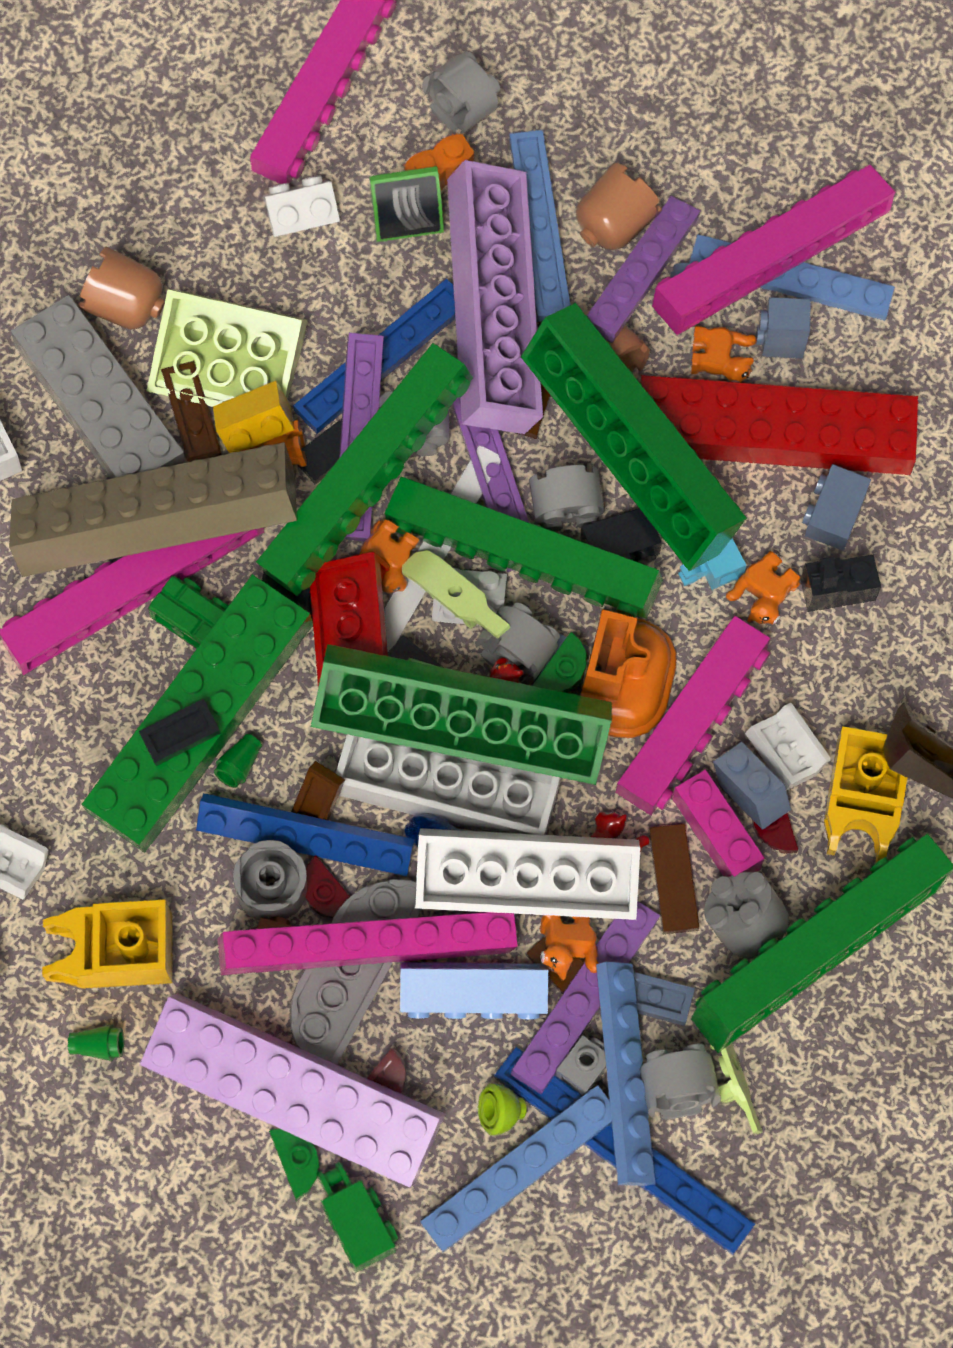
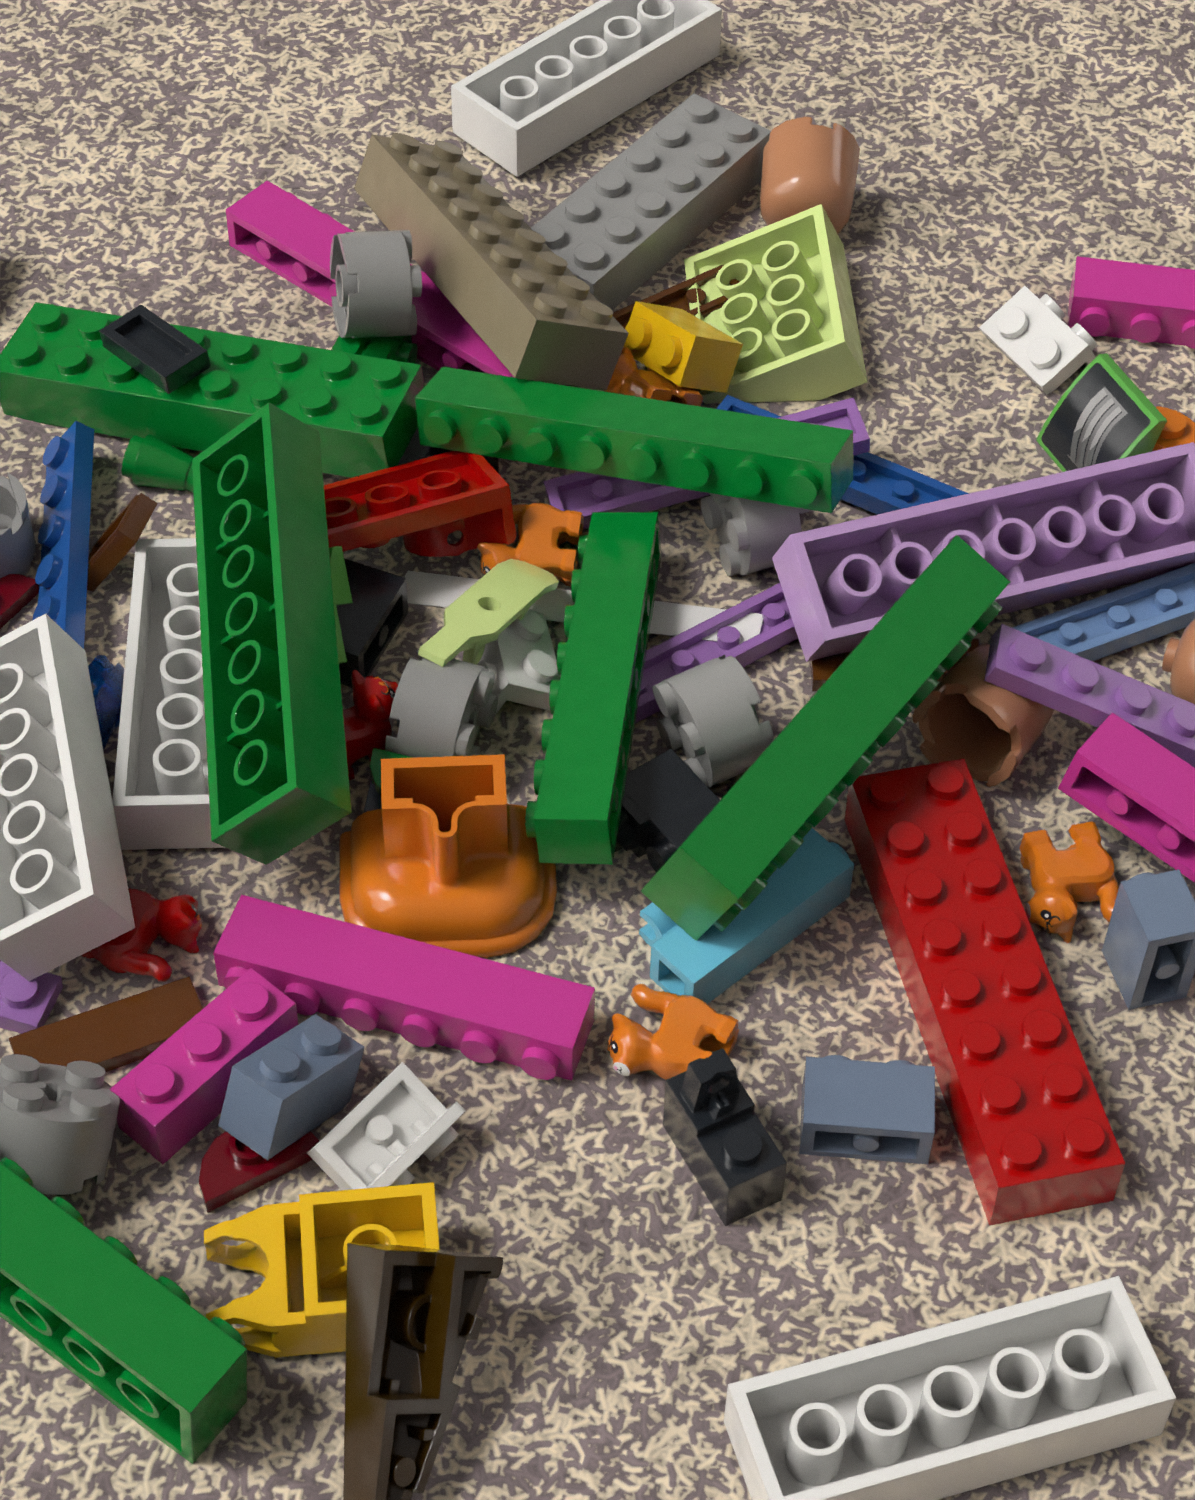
camera: 75 degrees right, 20 degrees down
(163, 583) = (374, 284): none -> light grey brick

